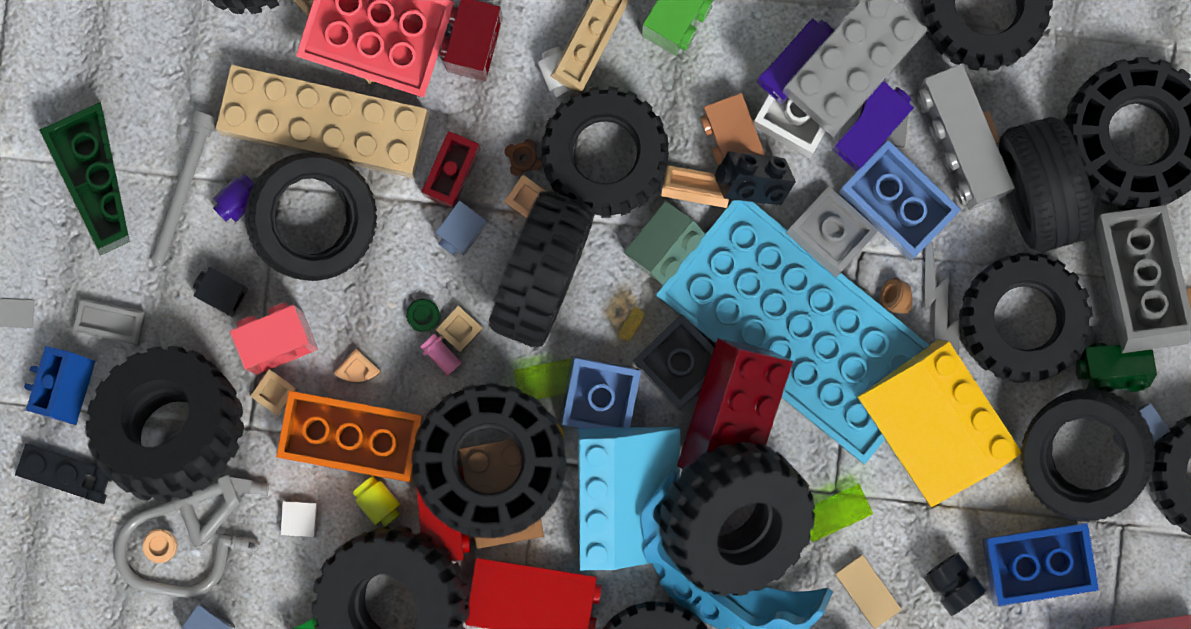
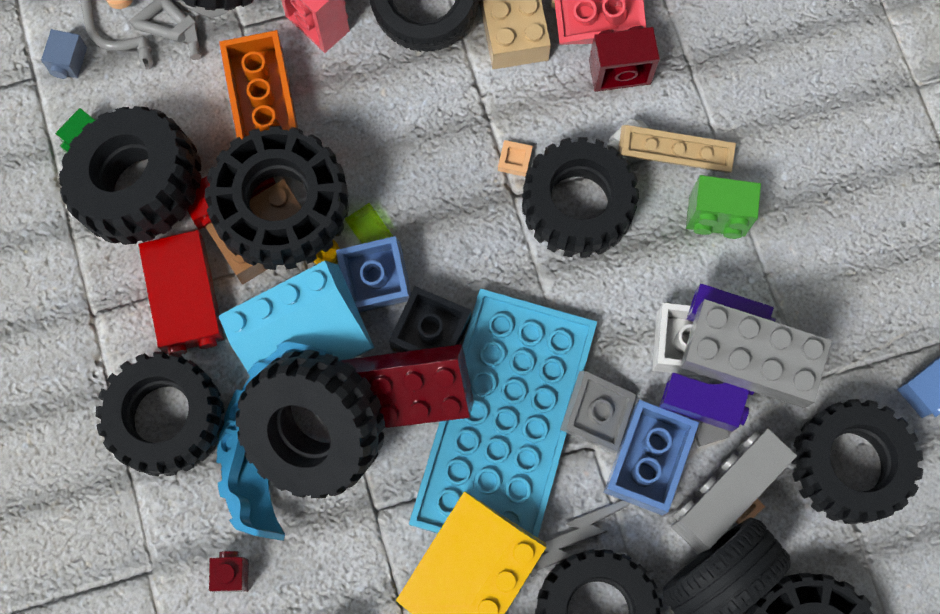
camera: 65 degrees right, 10 degrees down
(273, 392) = (282, 25): tan tile -> none
(298, 519) = (181, 89): white tile -> none
(357, 368) = (321, 85): light nougat tile -> none
(377, 501) = (216, 138): neon yellow brick -> none
(423, 315) = (384, 117): dark green tile -> none
(440, 354) = (361, 135): bright pink pin -> none
(451, 170) = (510, 86): dark red brick -> none
(459, 329) = (385, 149): tan tile -> none
(460, 229) = (466, 115): sand blue brick -> none
(527, 148) = (545, 133): reddish brown plate -> none
(541, 268) = (457, 173): black tyre -> none
(631, 325) = (446, 279): clear yellow tile -> none
(664, 243) = (525, 276): sand green brick -> none
(692, 186) = (585, 285): light nougat tile -> none
(730, 128) = (643, 296): nougat brick -> none
(754, 178) = (613, 324): black brick -> none
(839, 512) = (357, 518): clear neon green tile -> none
(868, 591) = (298, 575): tan tile -> none
(896, 296) = (567, 492): medium nougat tile -> none

